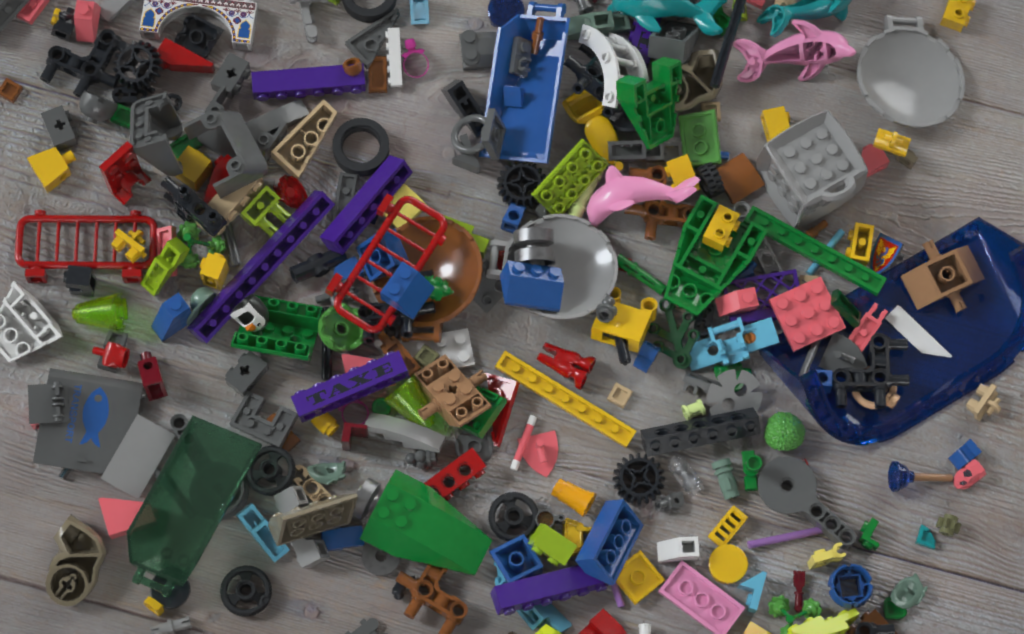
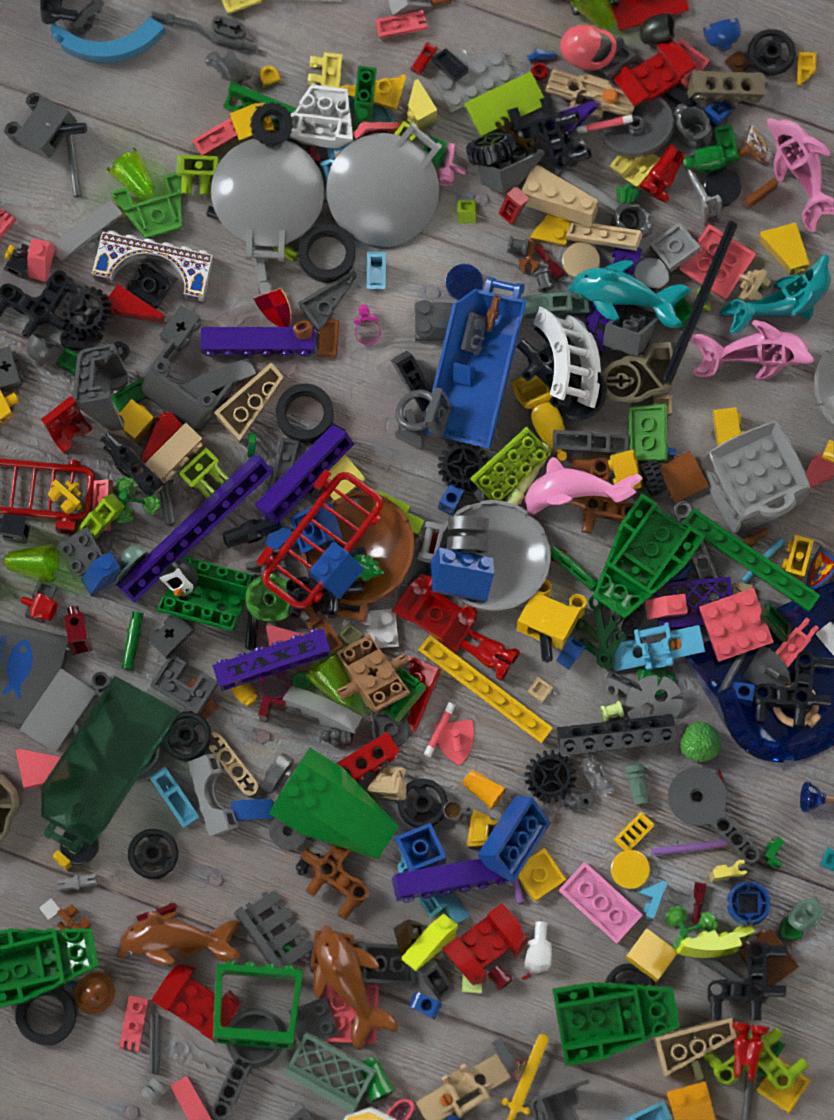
camera: 10 degrees right, 5 degrees up
(147, 298) = (79, 552): none -> dark grey hinge
(208, 373) = (132, 640): none -> green pin
(214, 270) = (147, 529): yellow brick -> none
(248, 164) = (191, 423): dark grey windscreen -> none
(290, 191) = (230, 453): red hat -> none
(311, 181) = (251, 444): none -> green tile
(312, 518) = (223, 790): dark tan slope -> none
(322, 47) = (275, 307): none -> shield
(327, 472) = (242, 743): sand green hat -> none
(394, 57) = (346, 322): white piece -> none
(478, 503) = (389, 786): none -> tan piece
(508, 328) = (435, 613): none -> red piece
(551, 544) = (457, 836): lime brick -> none
(606, 310) = (534, 605): dark grey piece -> none
(652, 104) = (601, 397): green wedge -> none
(678, 549) = (582, 851): white slope -> none
(720, 228) = (658, 529): yellow brick -> none
(751, 465) = (662, 776): green bar -> none

